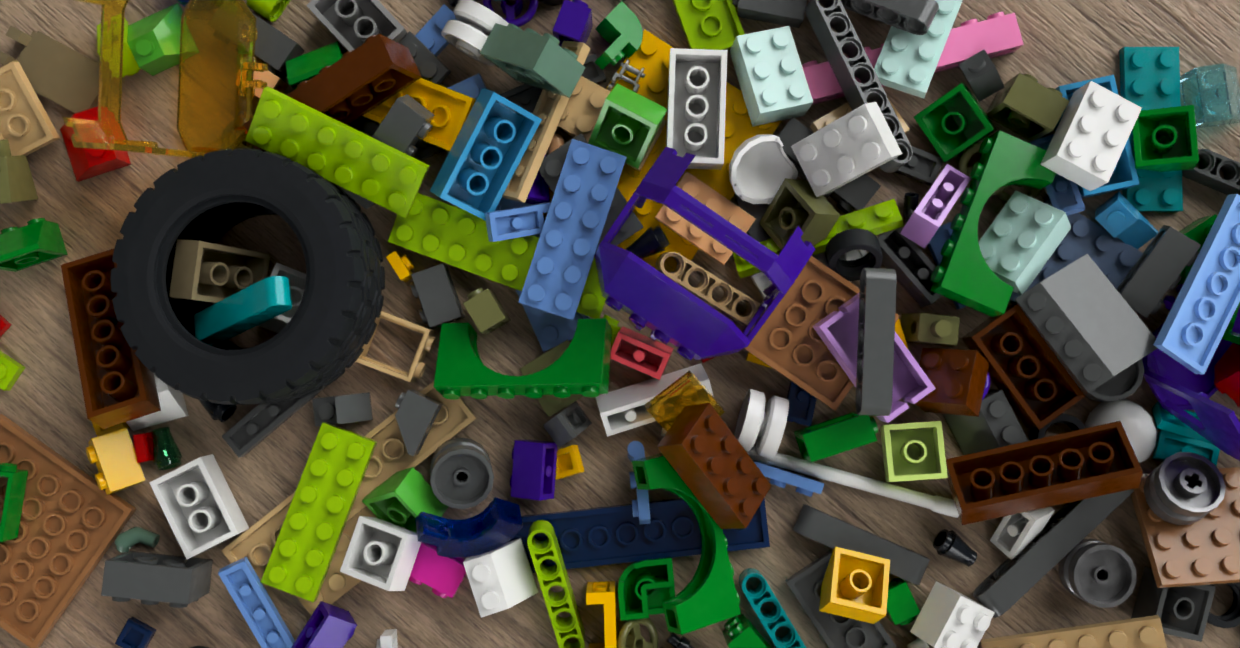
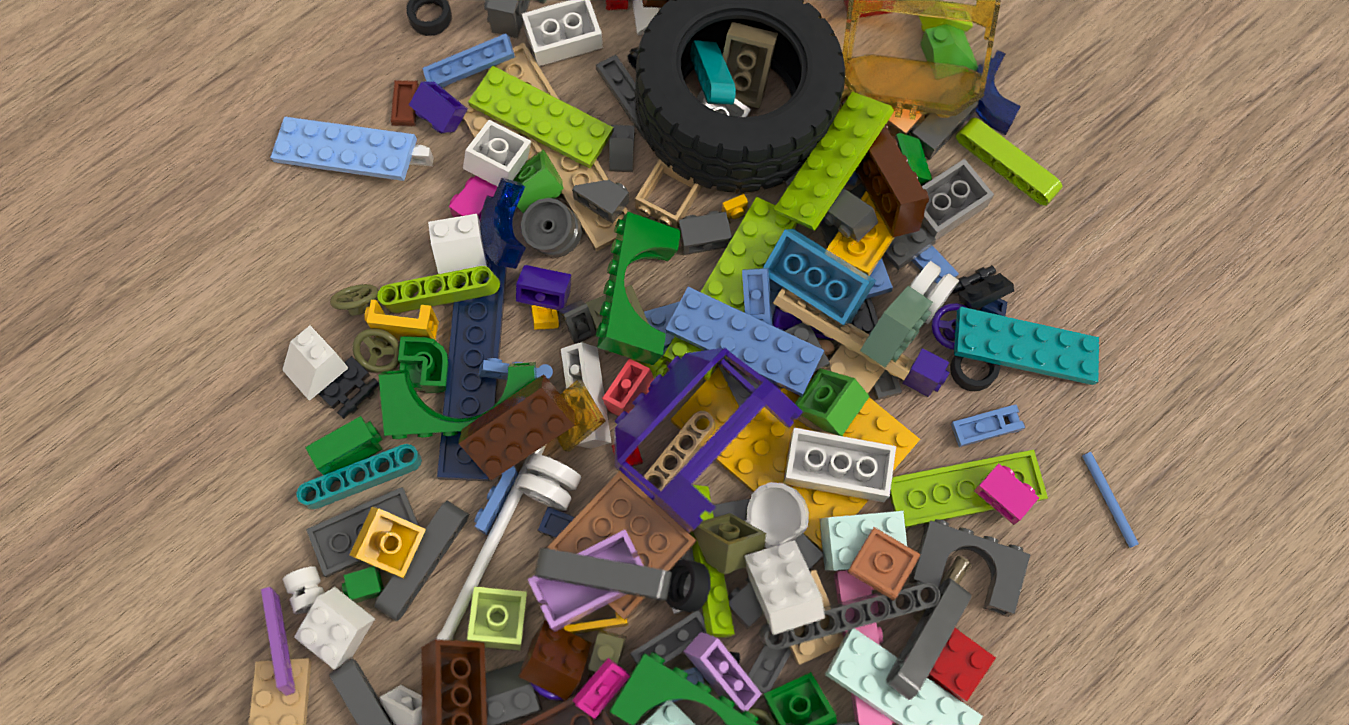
camera: 95 degrees right, 15 degrees down
(165, 450) = (611, 13): clear green cone -> none
(486, 310) = (685, 266): olive brick -> none
(622, 32) = (919, 417): brick -> none
(625, 66) = (886, 414): light grey piece -> none
(649, 243) = (722, 406): black cone -> none
(715, 202) = (742, 464): light nougat plate -> none
(802, 47) = (884, 563): none -> nougat tile
(836, 436) = (523, 544): green window -> none
(953, 547) = (401, 646): black cone -> none
(978, 327) = (601, 688): none -> dark pink plate

